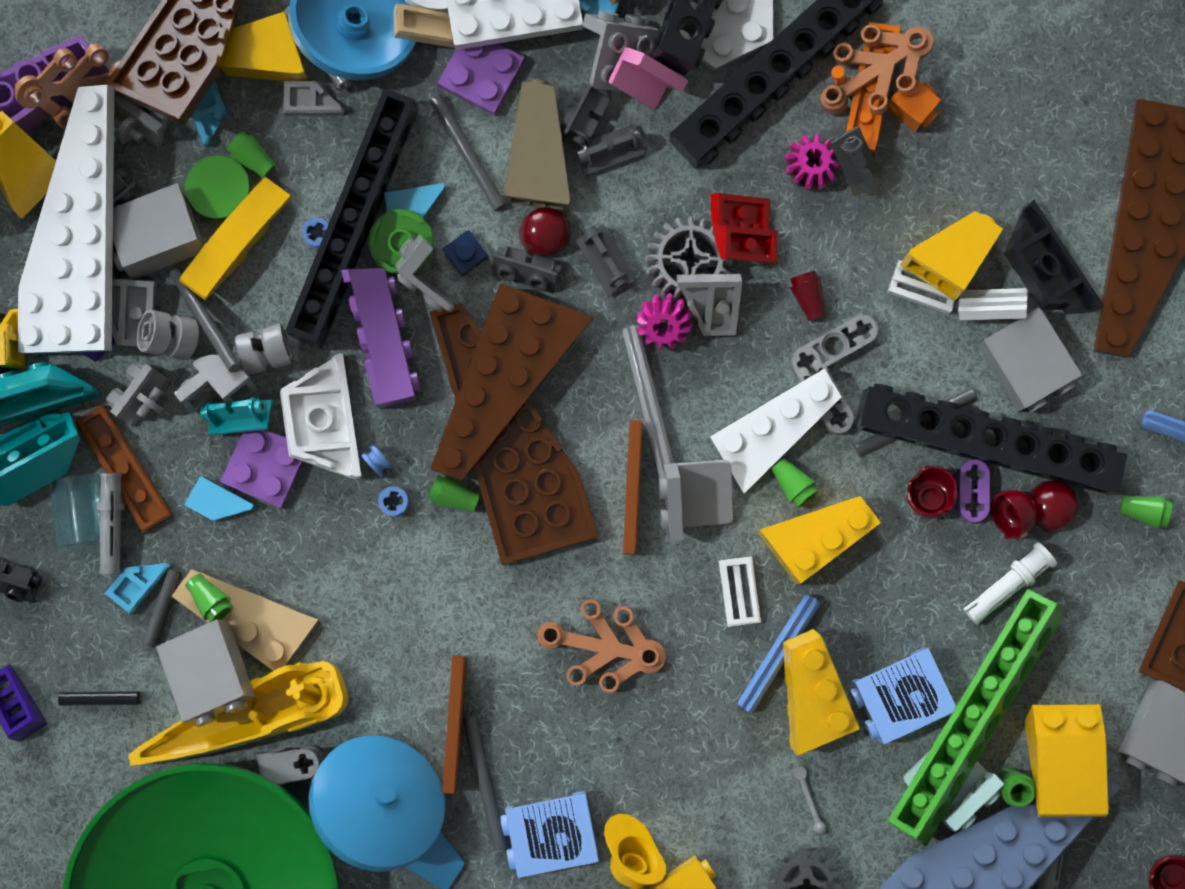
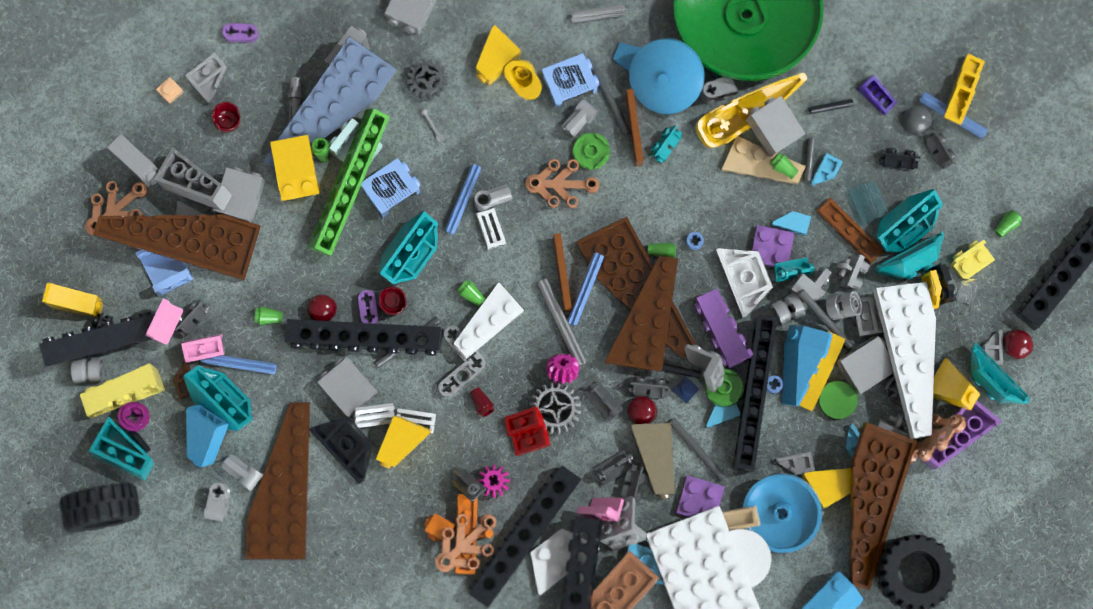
camera: 165 degrees right, 5 degrees down
(110, 485) = (851, 205): light grey pin -> none
(249, 152) = (823, 422): bright green cone -> none
(259, 261) = (802, 354): none -> dark azure wedge
(377, 461) = (709, 260): medium blue bush -> none
(396, 696) = (659, 149): none -> teal hinge
(465, 285) = (681, 370): none -> black piece
(541, 765) = (582, 114): none -> light grey piece
(542, 687) = (595, 155): none -> bright green tile
(598, 451) = (585, 288): none -> medium blue axle
(695, 495) = (526, 274): light grey bracket -> none
(713, 301) = (537, 384): light grey wing -> none
(723, 644) = (494, 197): none -> light grey piece
(815, 695) = (439, 177): yellow wedge -> none
(818, 537) = (452, 264): yellow wedge -> none
(890, 575) = (410, 249): none -> teal wedge
(1014, 513) = (343, 297): dark red hair -> none
(1021, 574) = (333, 267): white pin -> none

